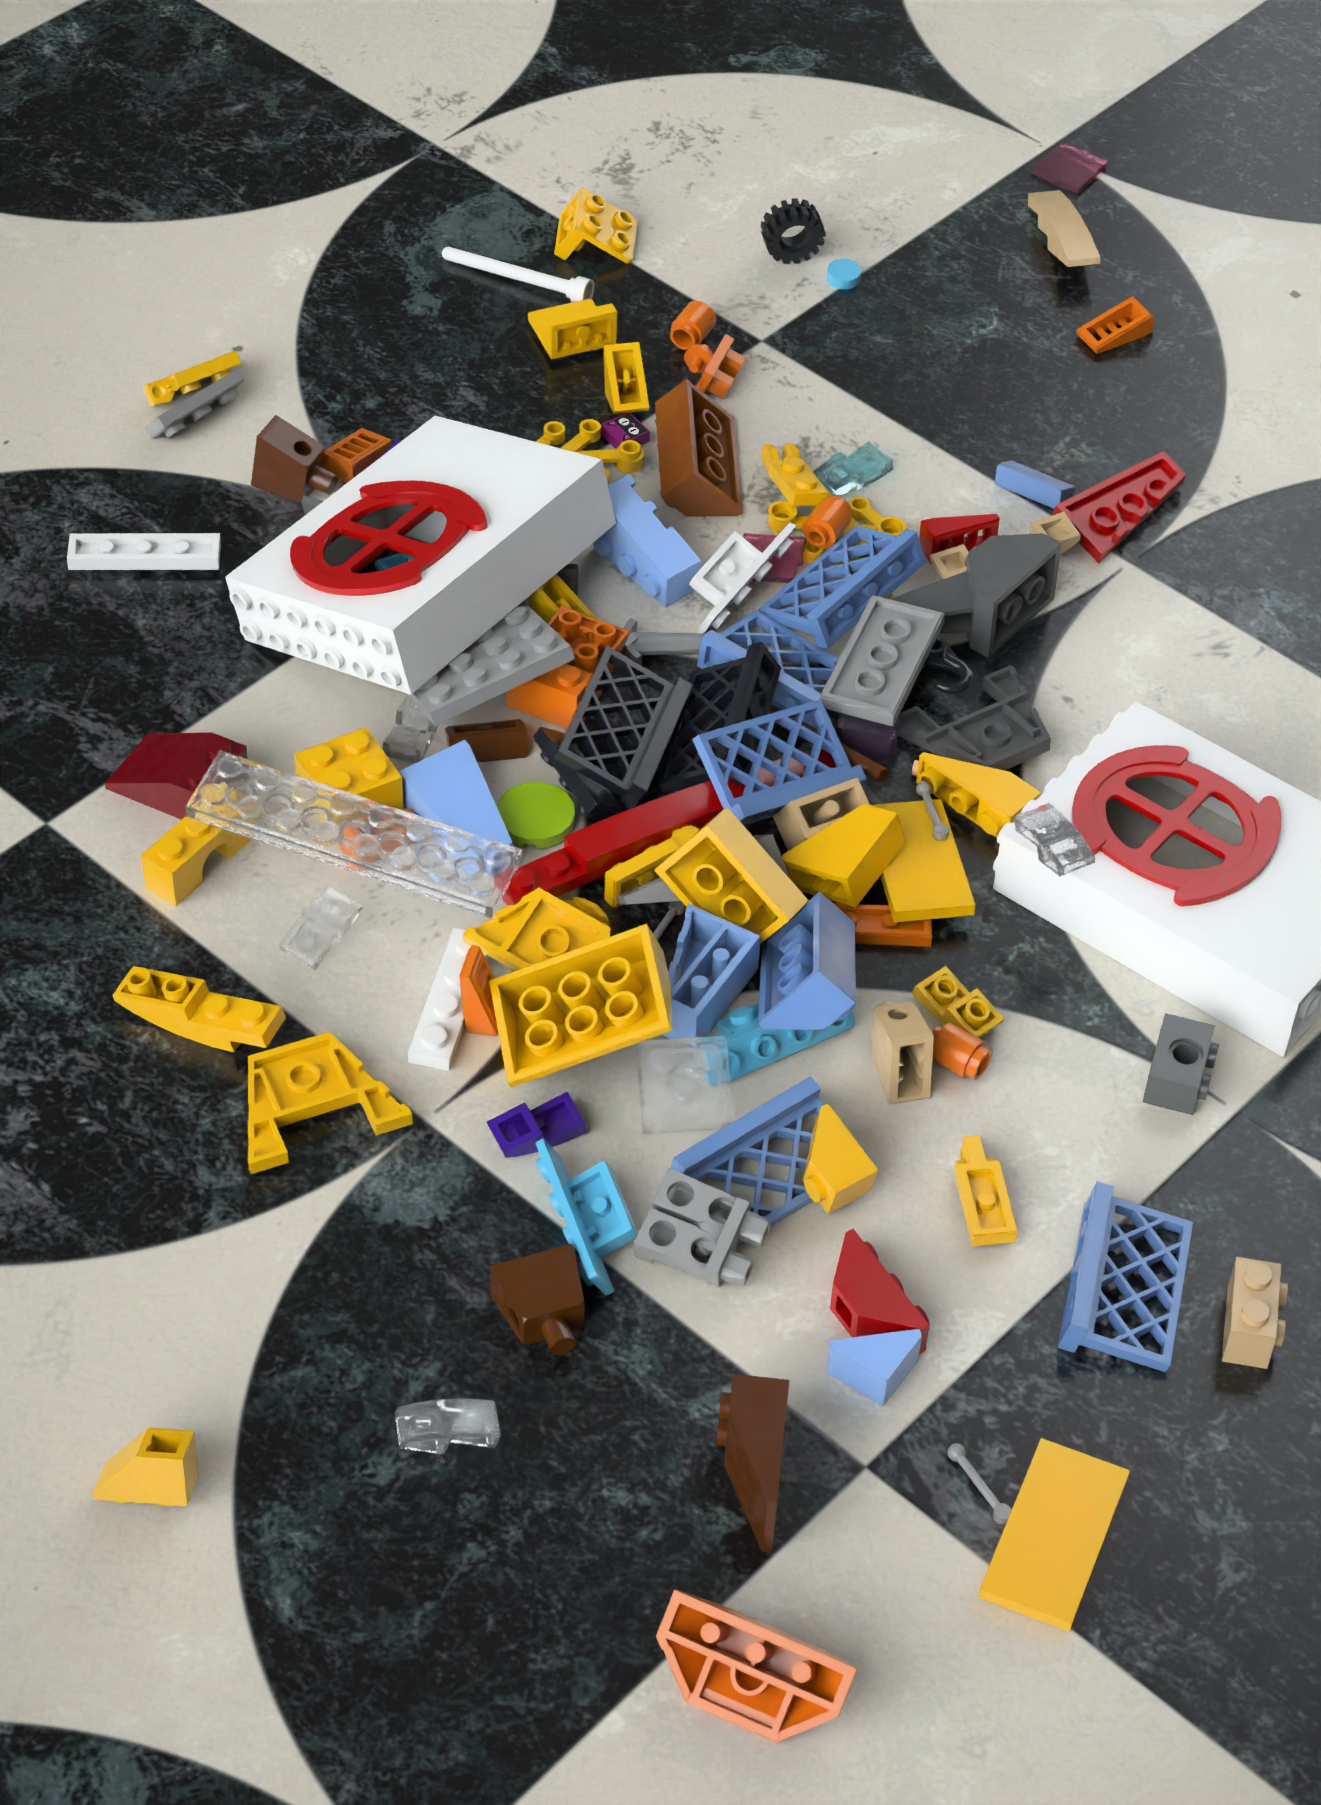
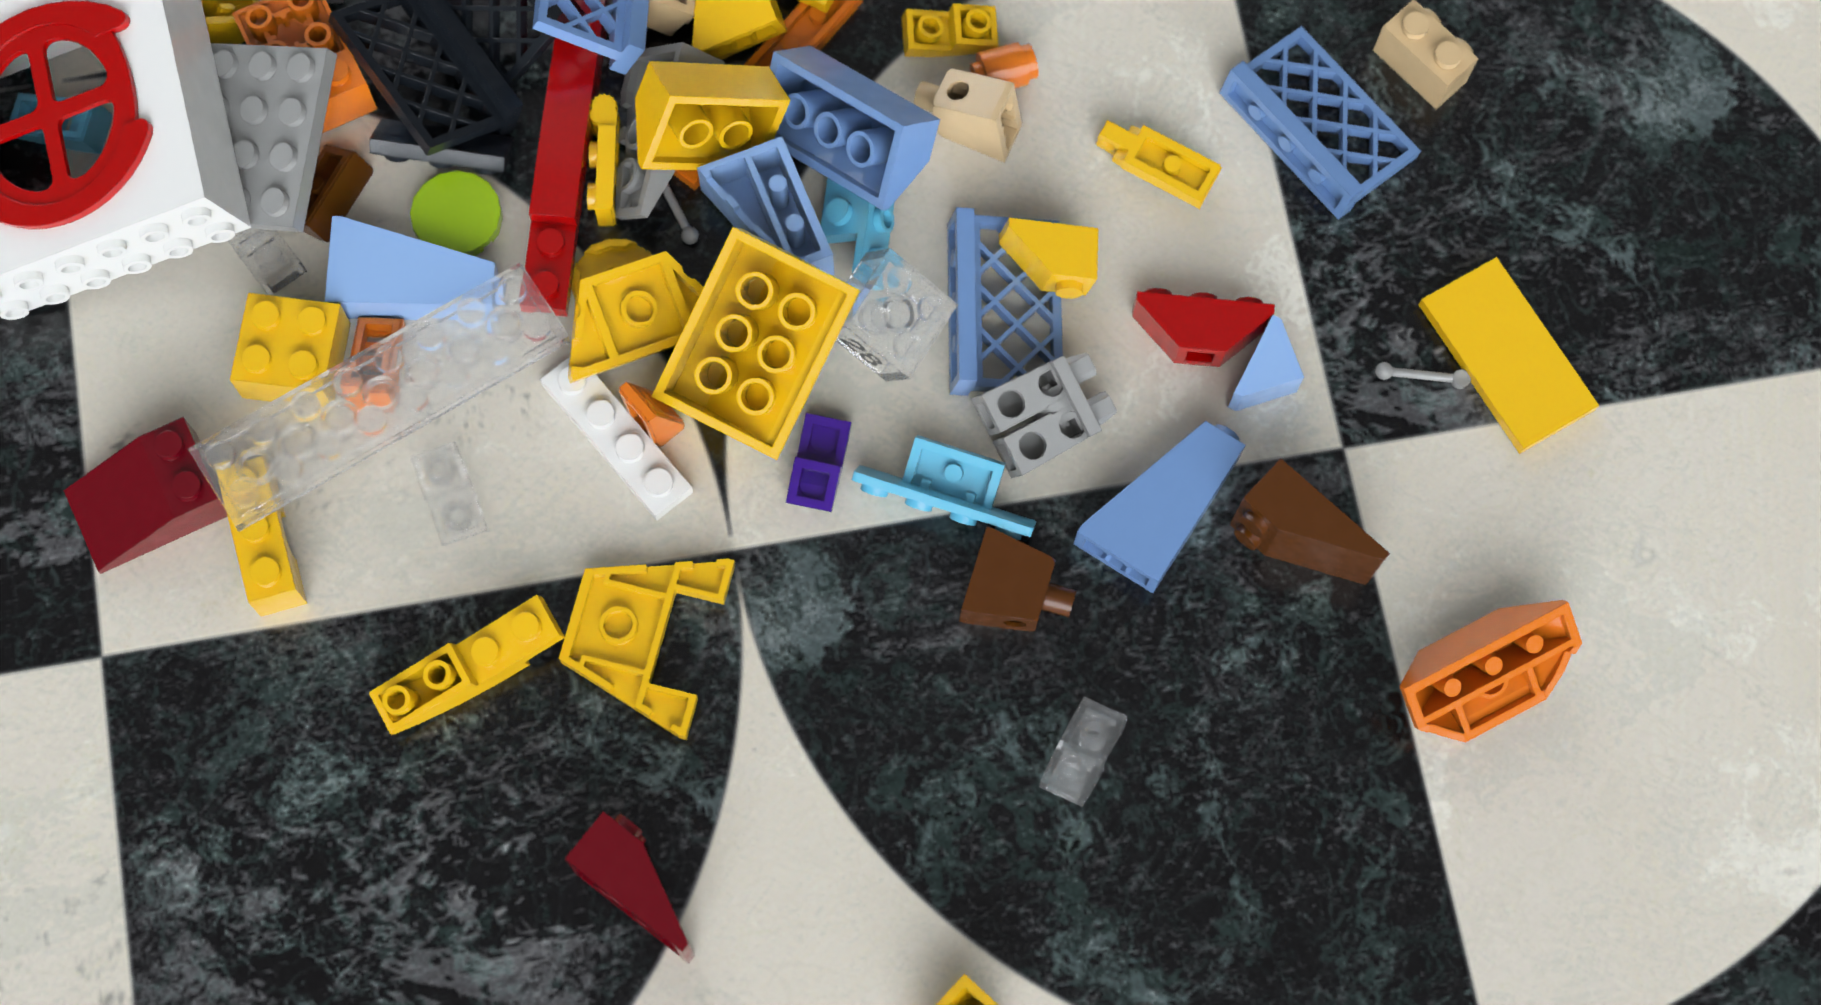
camera: 55 degrees left, 25 degrees up
(108, 1188) = (620, 869): none -> dark red slope
(693, 1358) = (1158, 511): none -> medium blue slope

